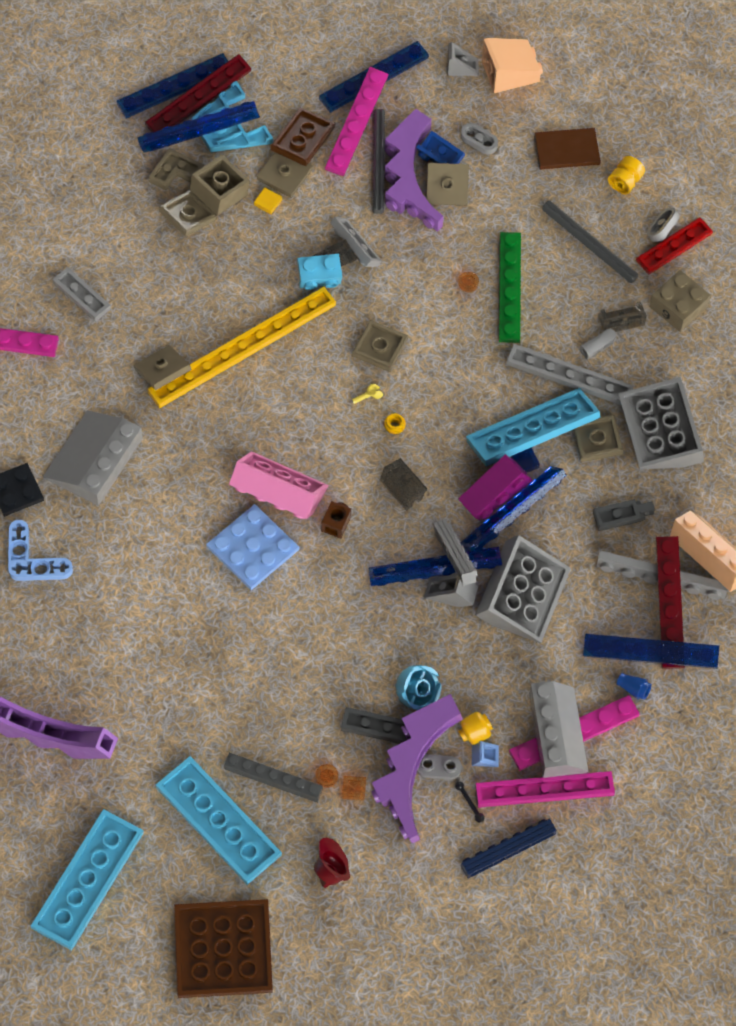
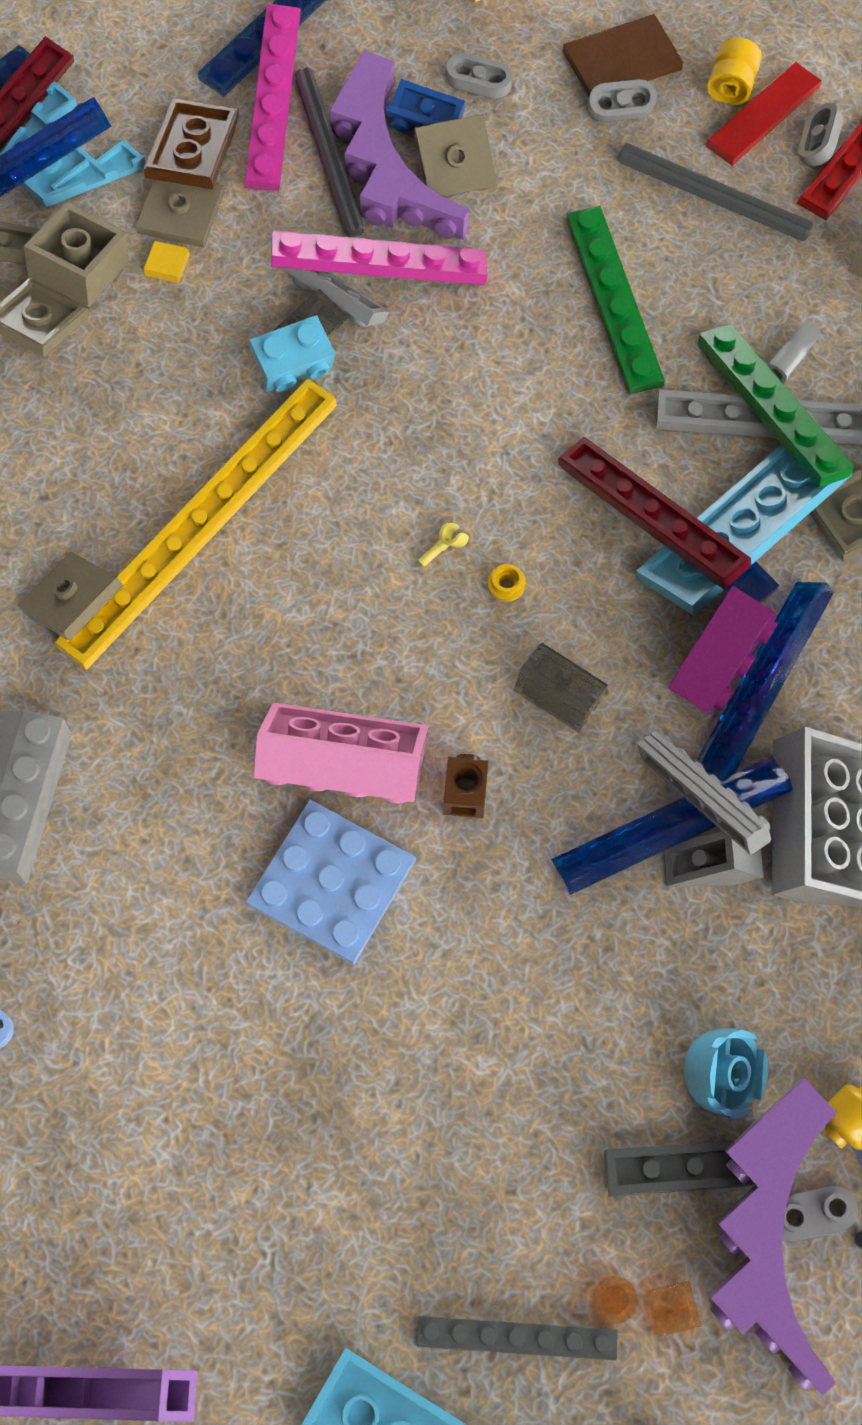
camera: 15 degrees left, 5 degrees up
(380, 346) = (435, 454): dark tan plate -> none
(385, 230) = (378, 258): none -> dark pink plate
(468, 281) = (543, 307): clear orange tile -> none
(485, 407) = (655, 513): none -> dark red tile
(555, 175) = (619, 97): none -> light grey plate
(572, 368) = (775, 406): none -> green plate
(623, 318) = (818, 299): clear smoke hinge -> none
(636, 203) = (763, 113): none -> red tile

